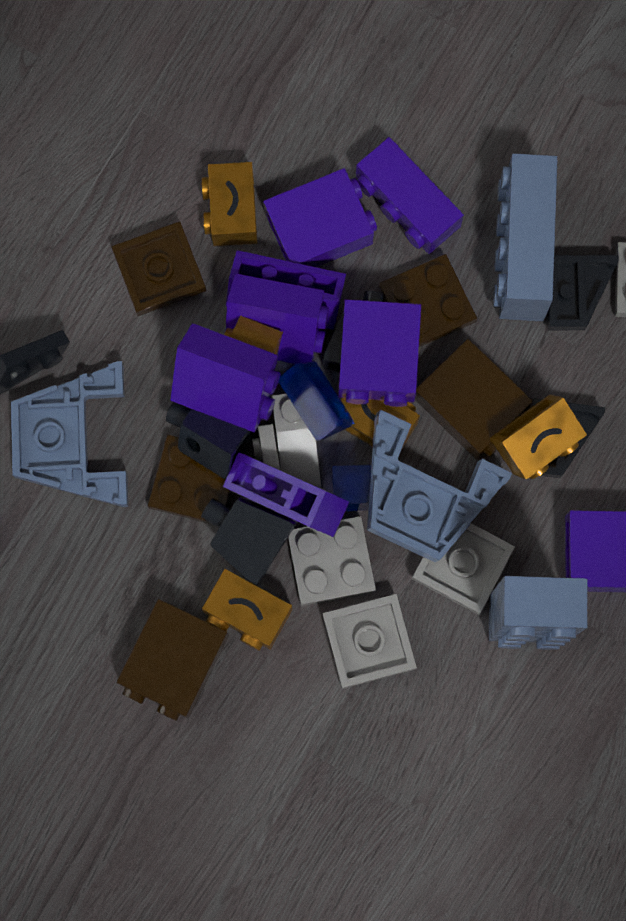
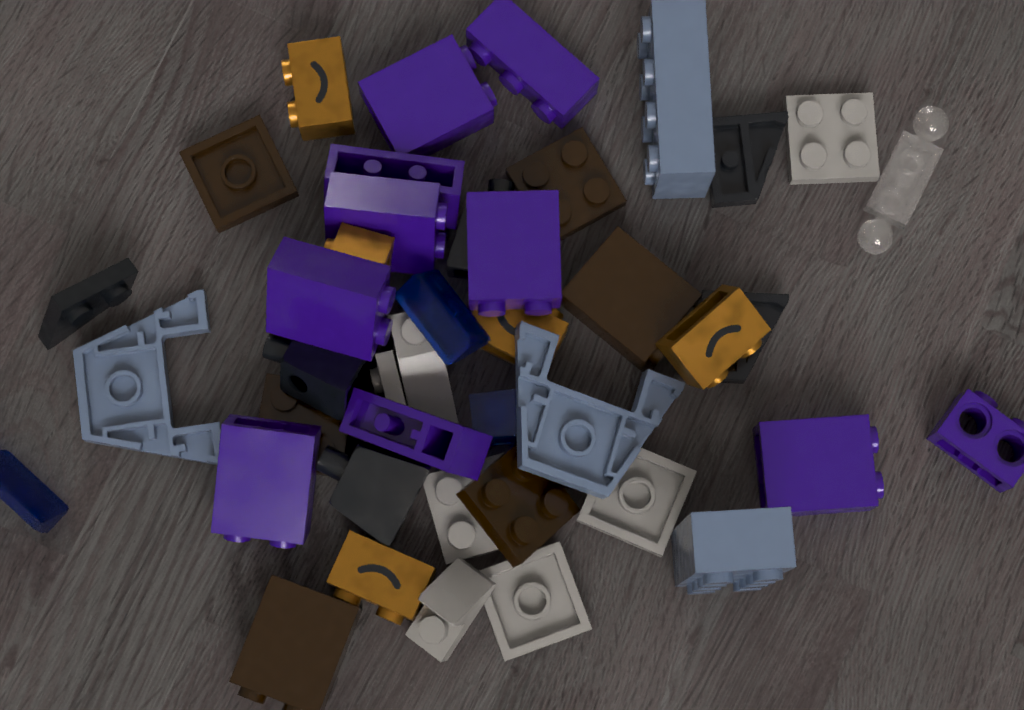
camera: 10 degrees left, 0 degrees up
(159, 522) = (265, 480): none -> dark purple brick
(301, 640) = (449, 608): none -> light grey slope
(363, 562) = (517, 507): none -> dark brown plate

